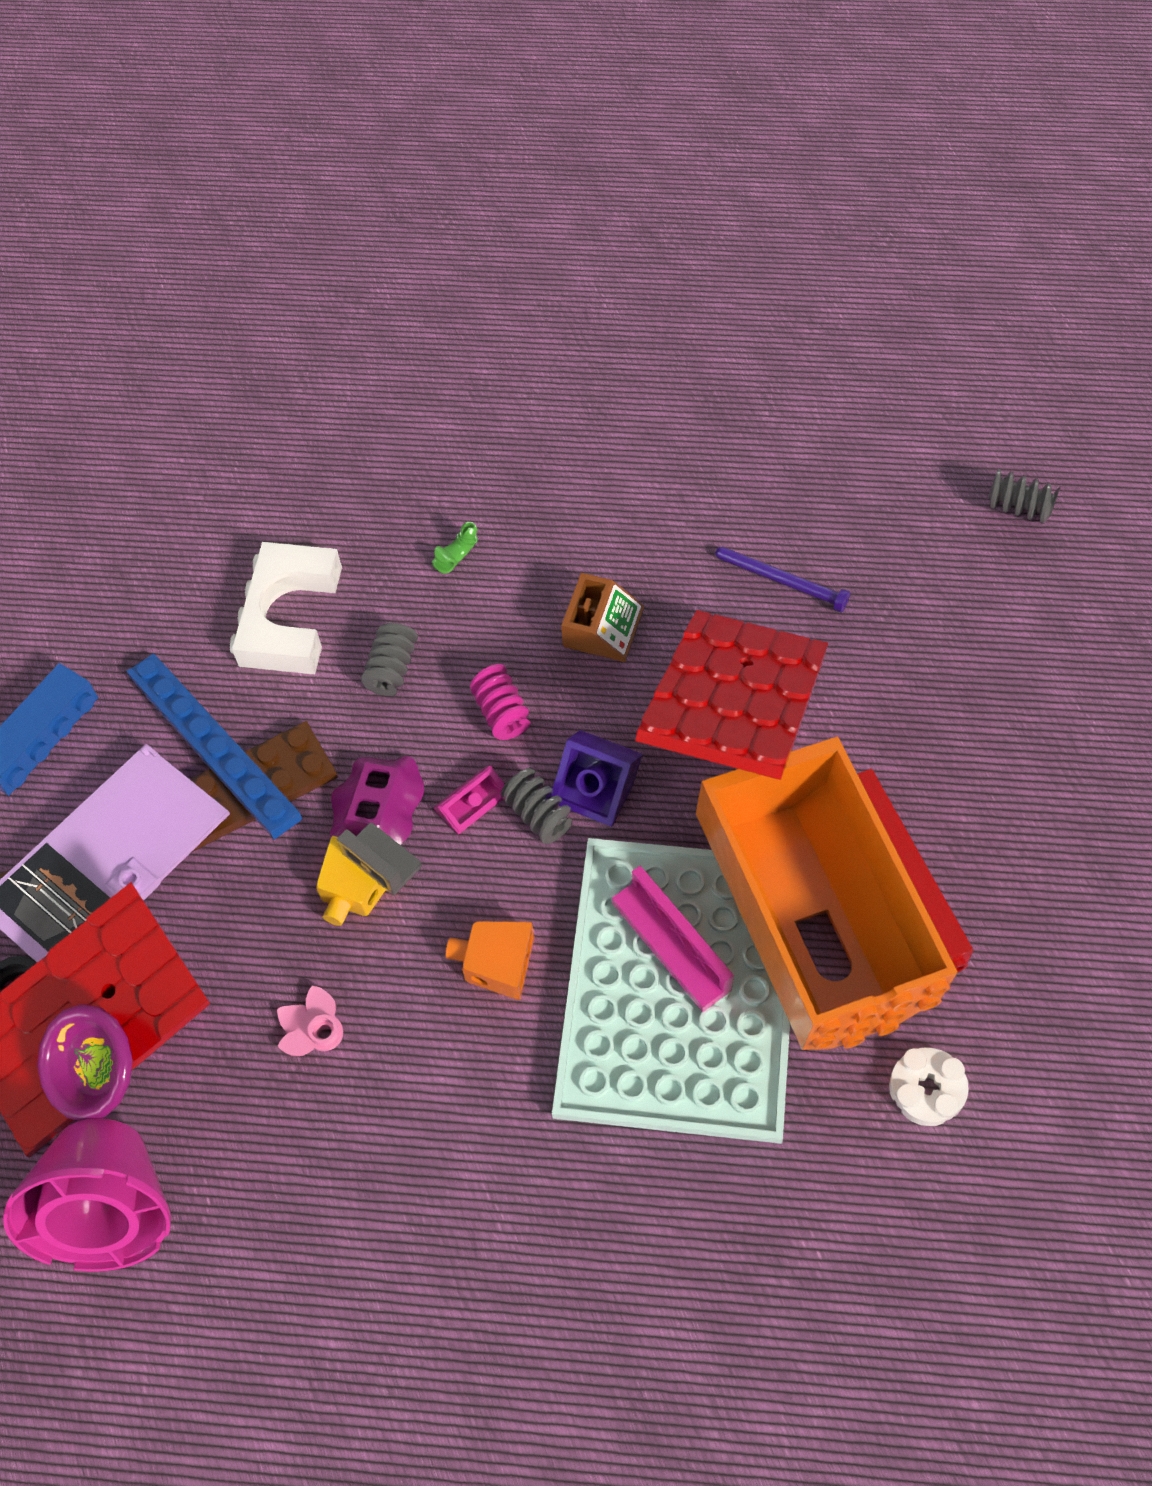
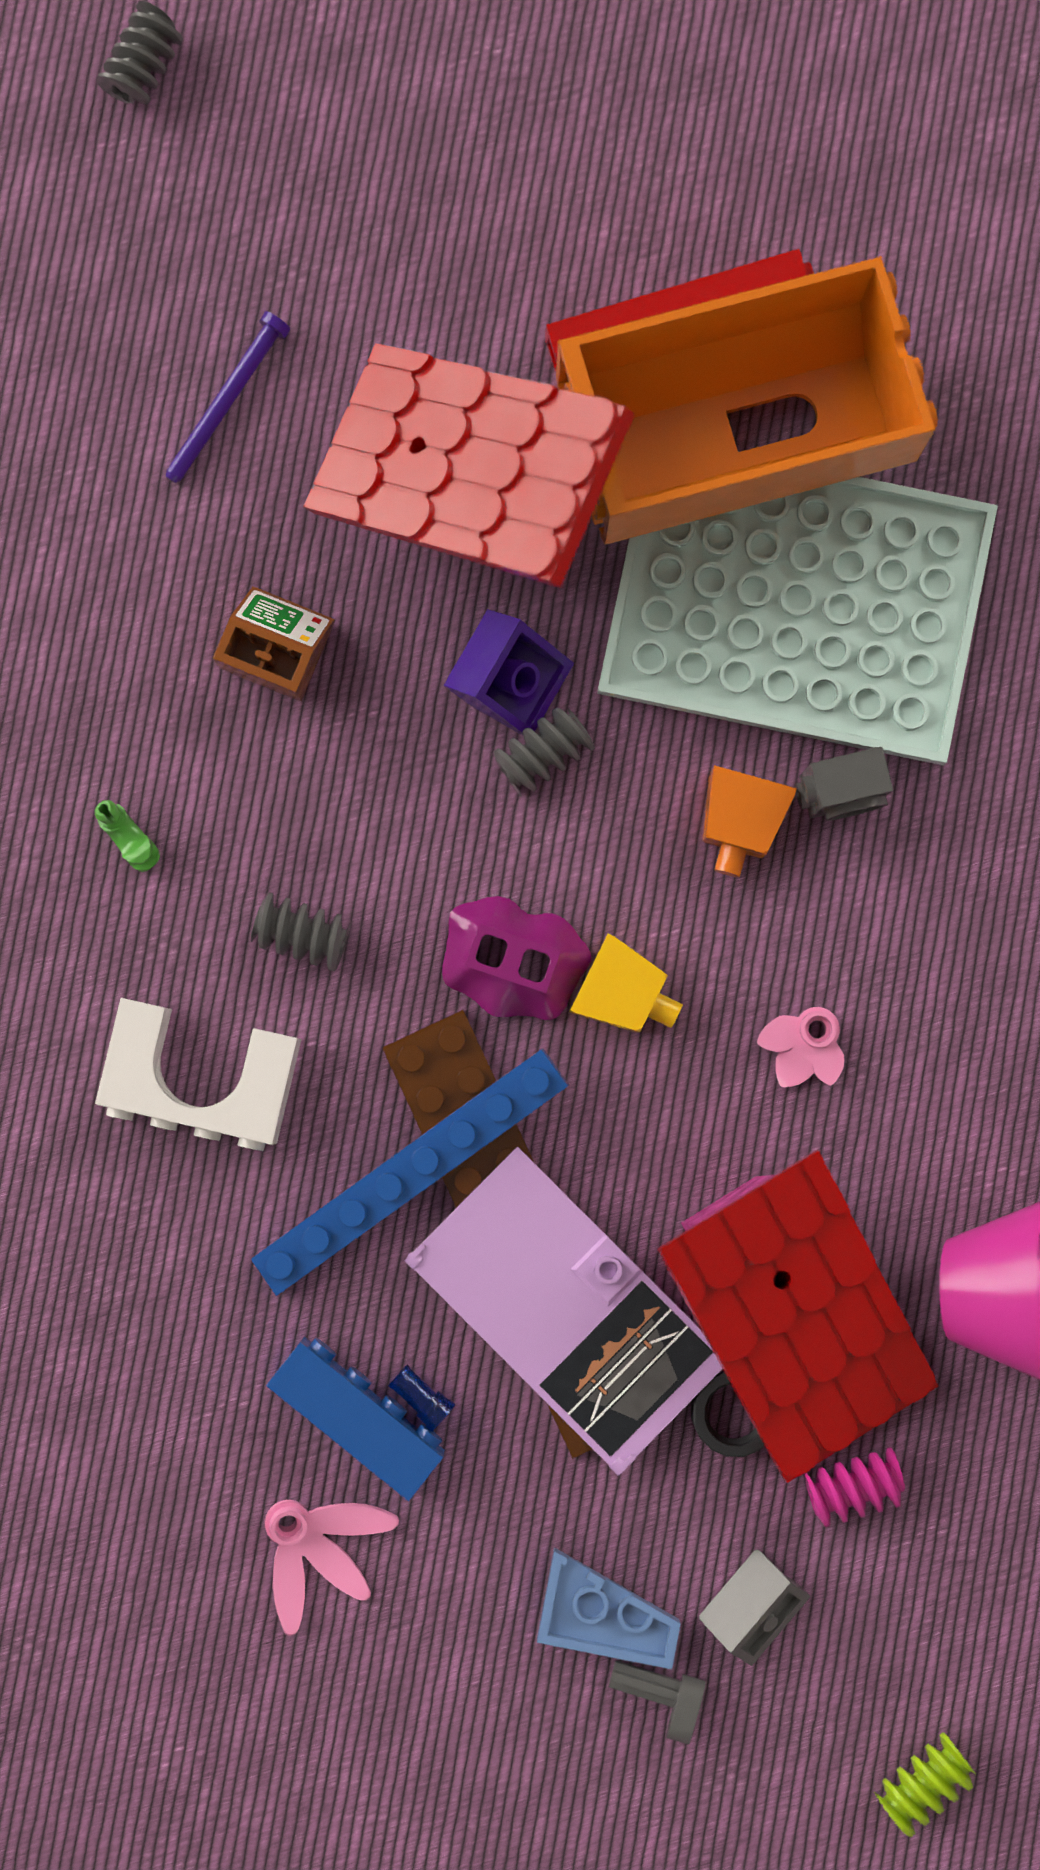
camera: 90 degrees left, 25 degrees up
(41, 776) = (430, 1405): none -> clear blue pin
(84, 1062) = (876, 1301): magenta piece -> none
(379, 857) = (611, 945): dark grey panel -> none
(471, 800) = (516, 837): dark pink slope -> none
(500, 702) = (385, 788): dark pink piece -> none
(522, 1024) = (845, 785): none -> dark grey brick
(673, 940) = (753, 598): dark pink fence -> none
(946, 1073) = (964, 322): white plate -> none

